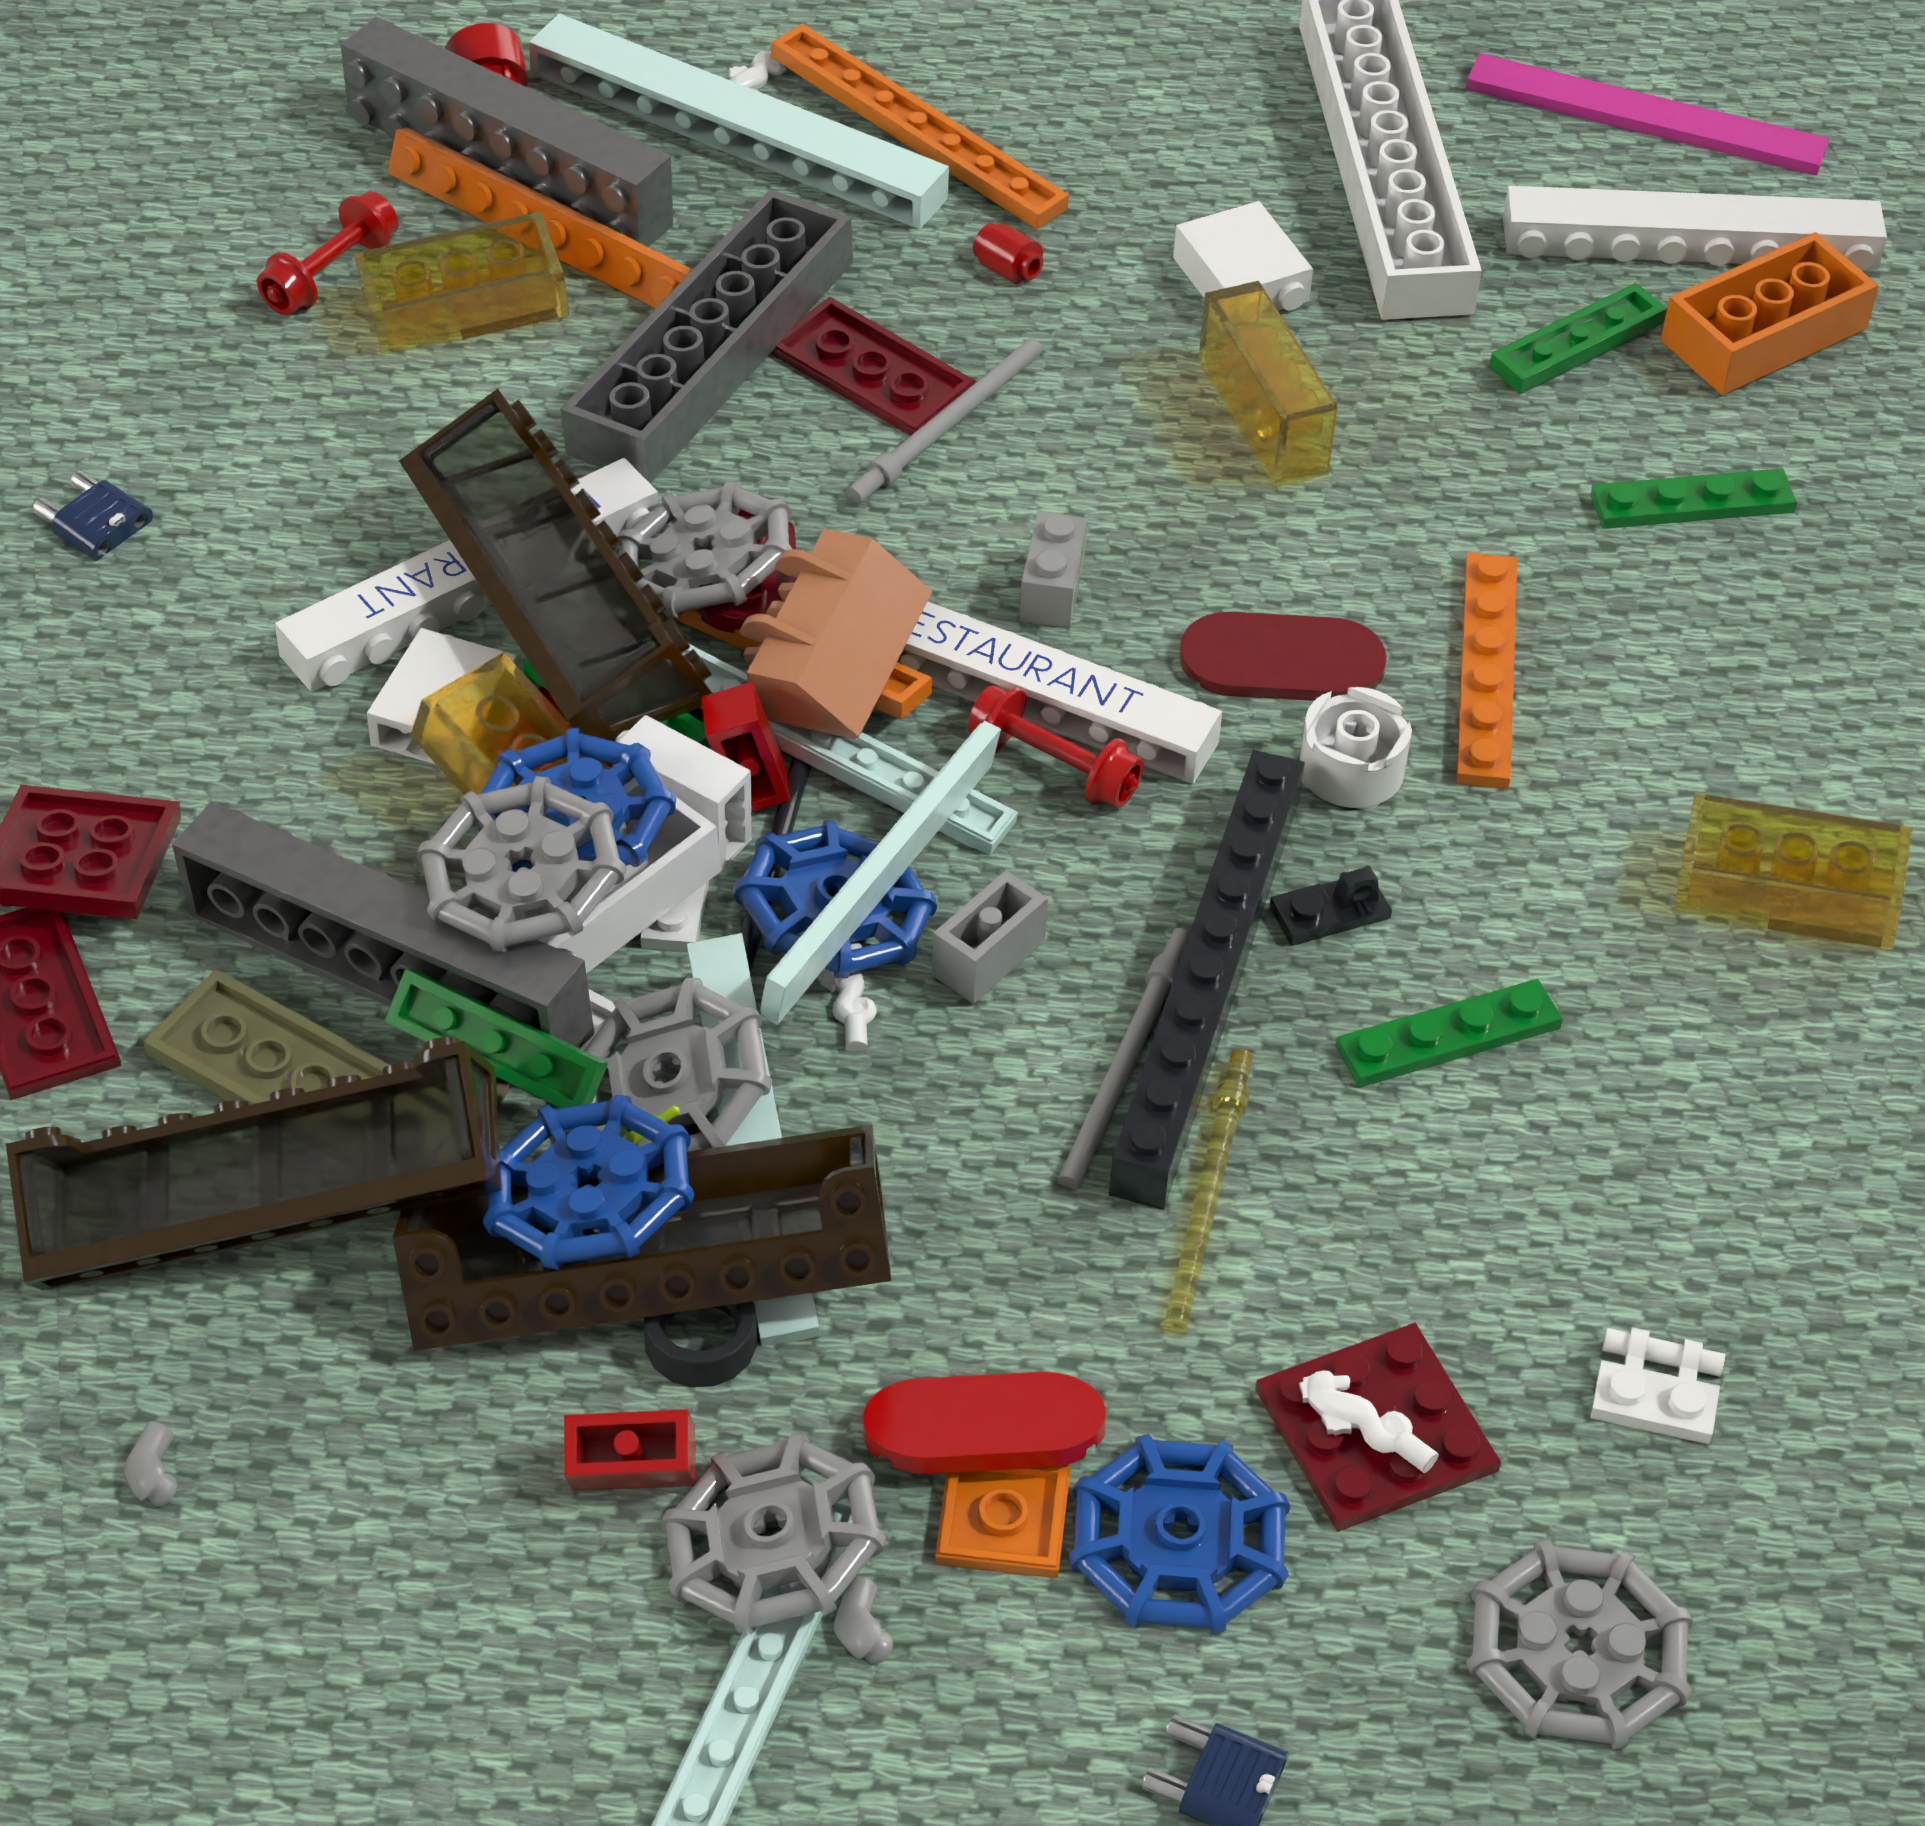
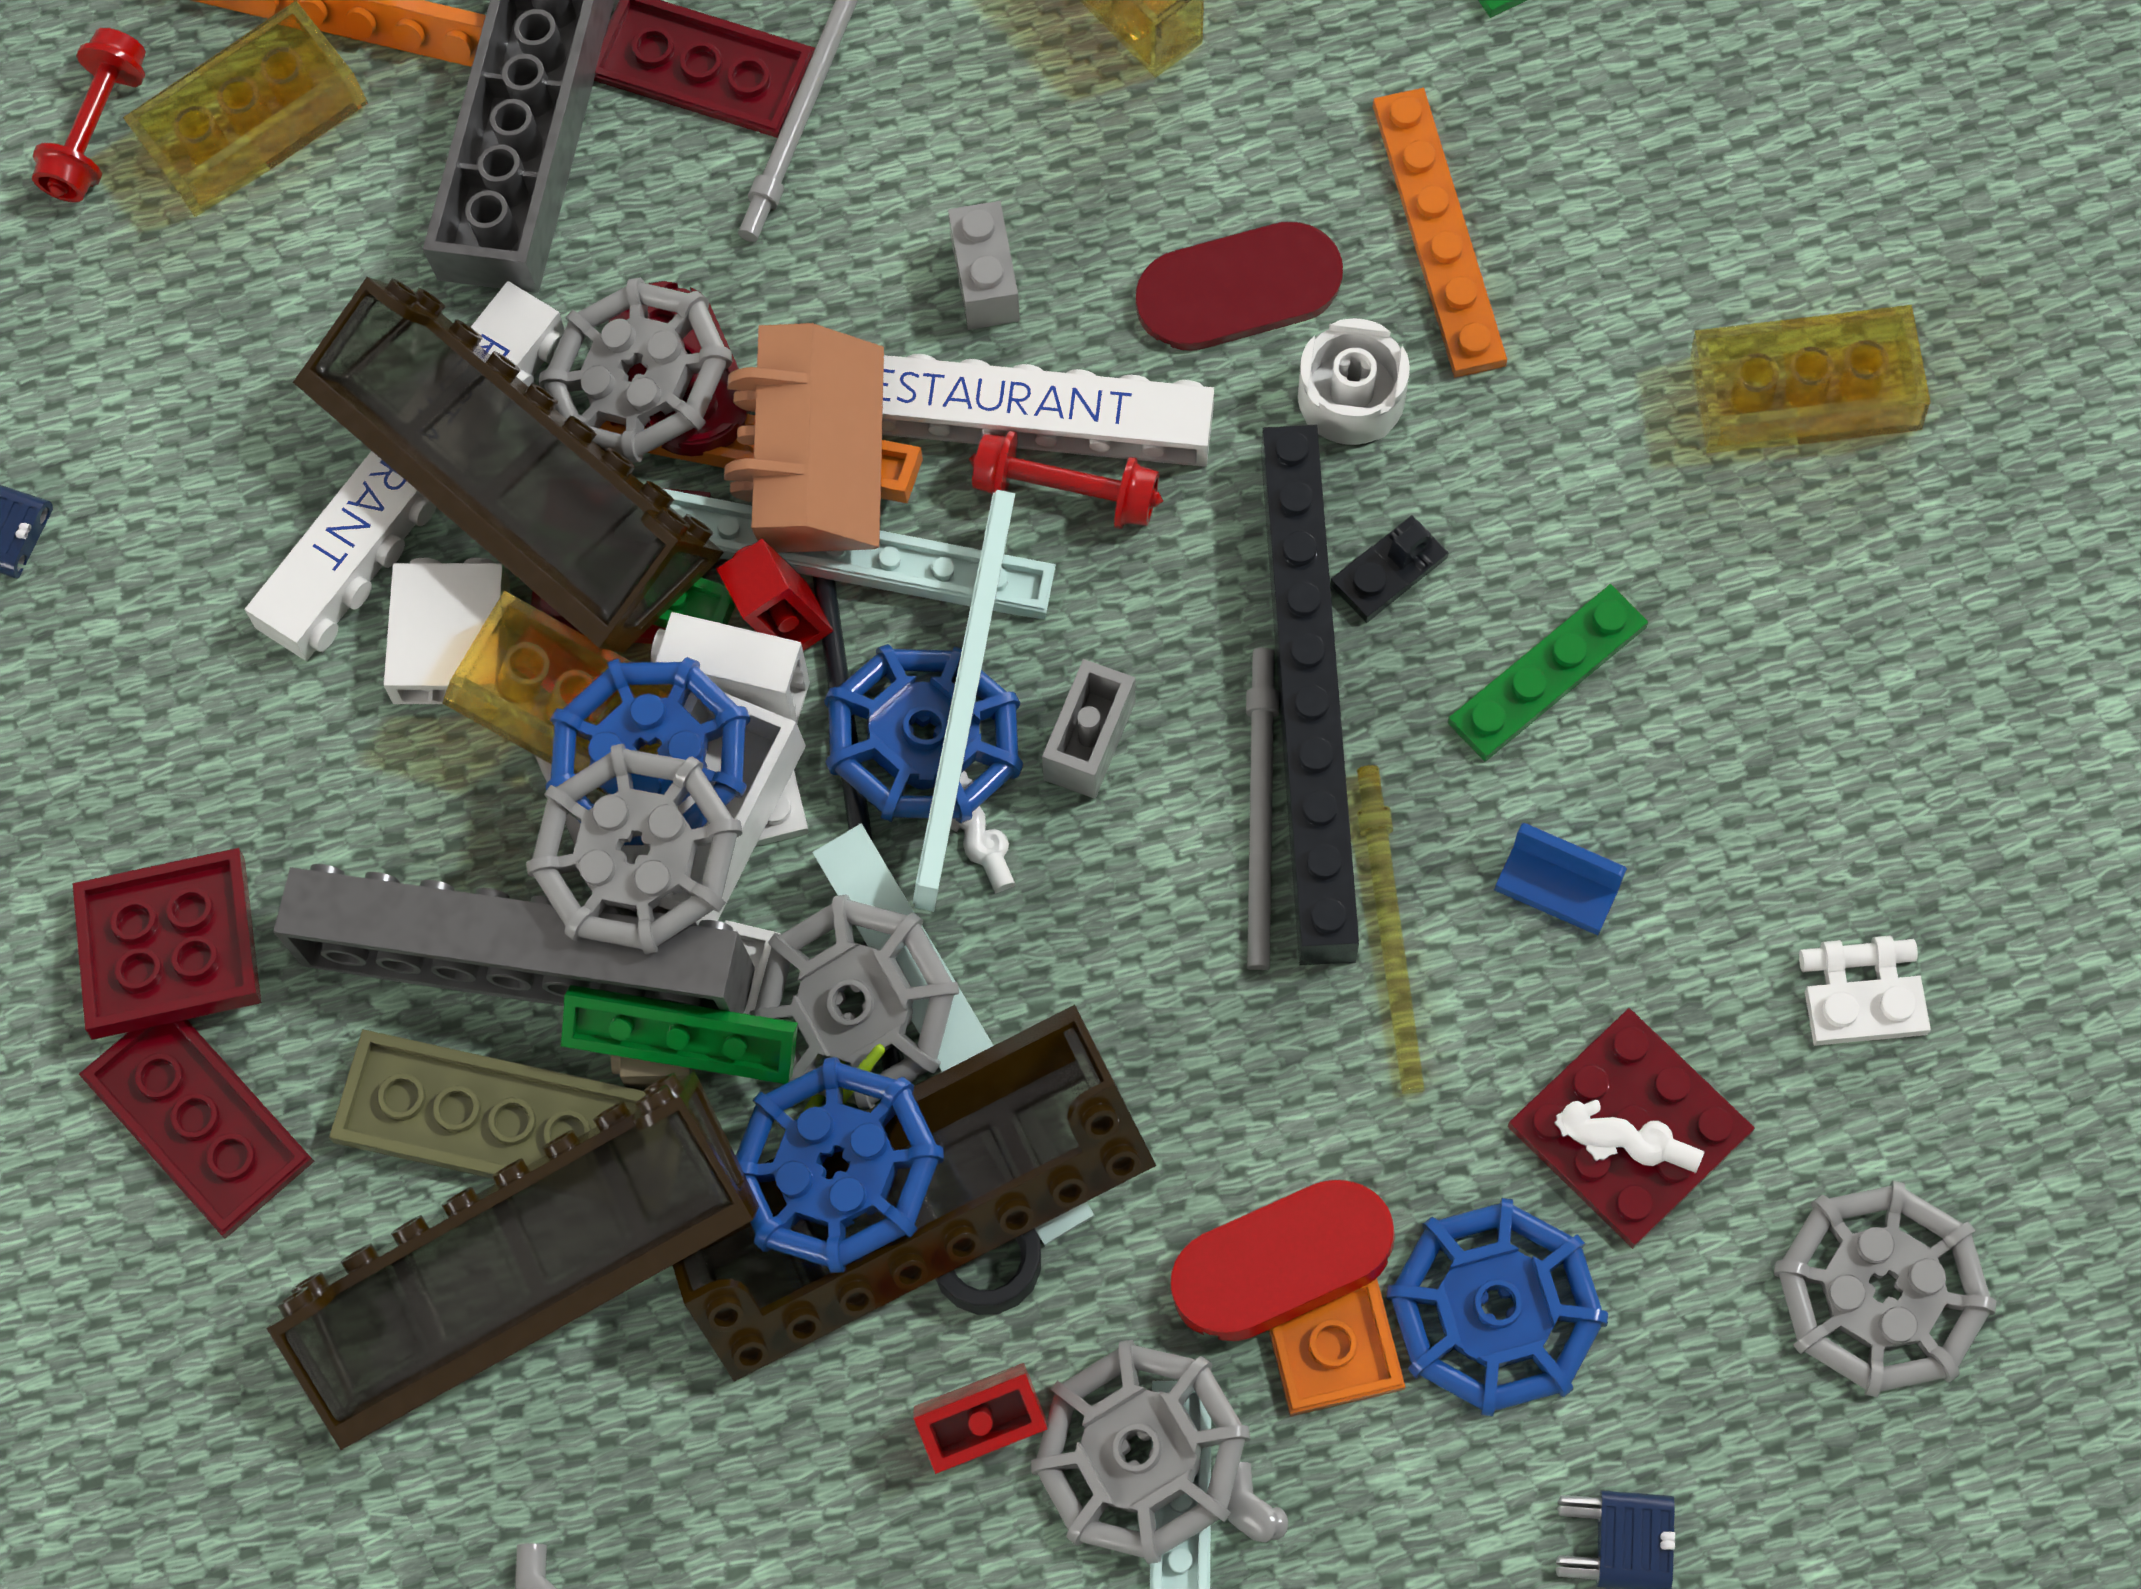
camera: 15 degrees left, 20 degrees up
(1393, 1194) = (1560, 878): none -> blue panel

